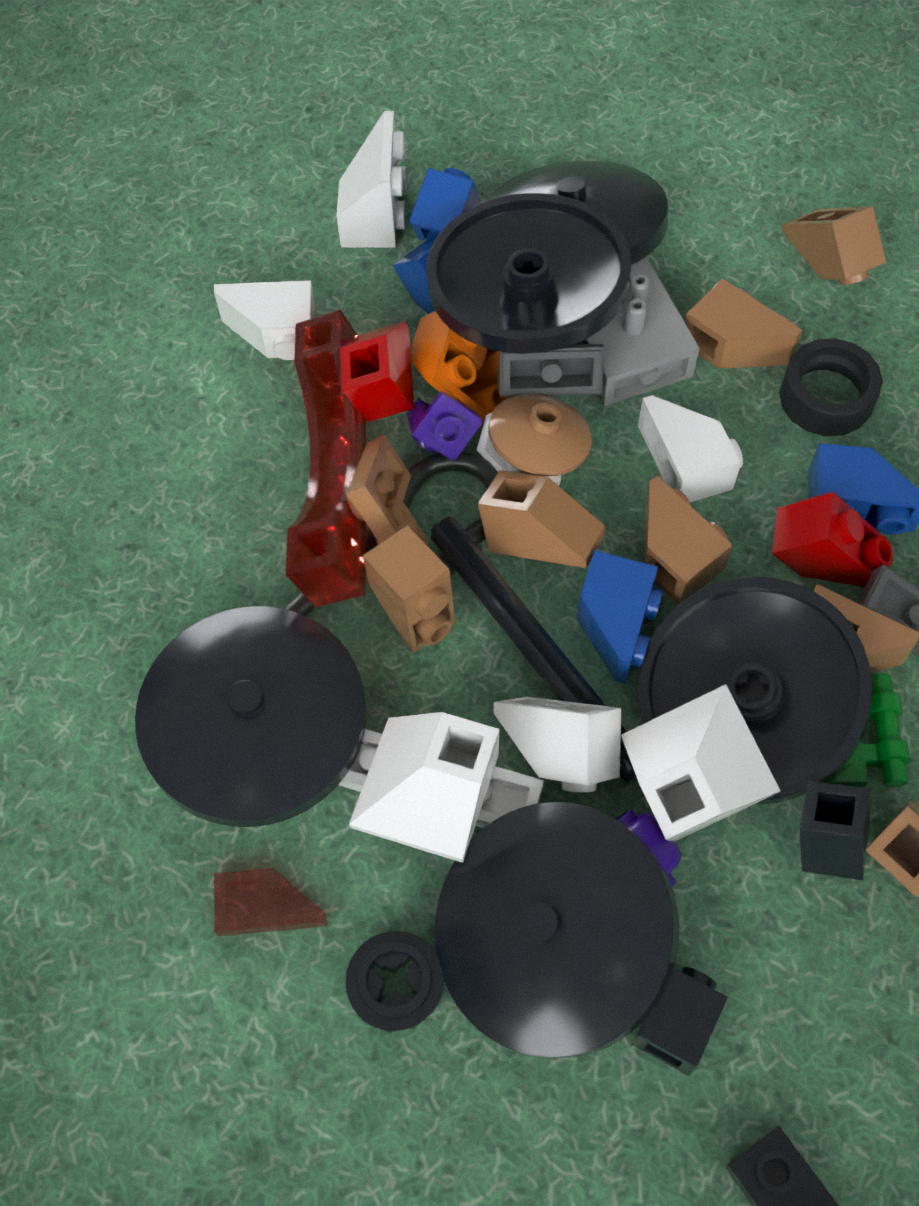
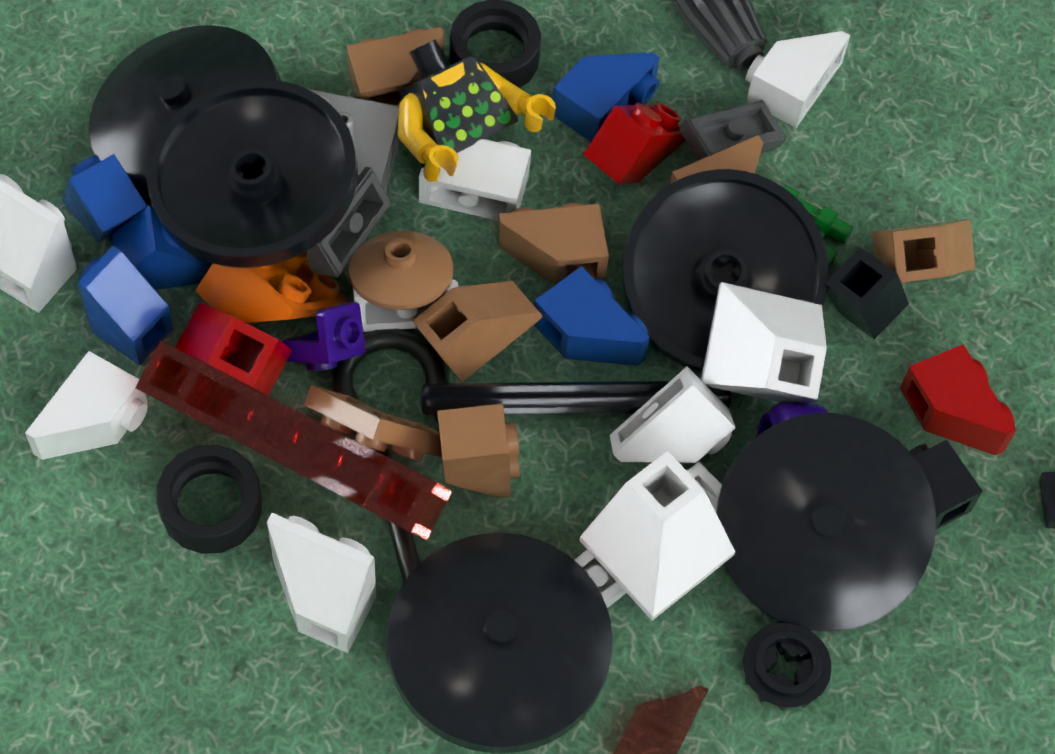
camera: 65 degrees left, 0 degrees up
(216, 548) = (323, 579): none -> white slope
(243, 407) = (192, 464): none -> black tyre
(366, 276) = (123, 306): none -> blue slope
(733, 384) = (459, 107): none -> torso
(790, 987) = (956, 401): none -> red slope

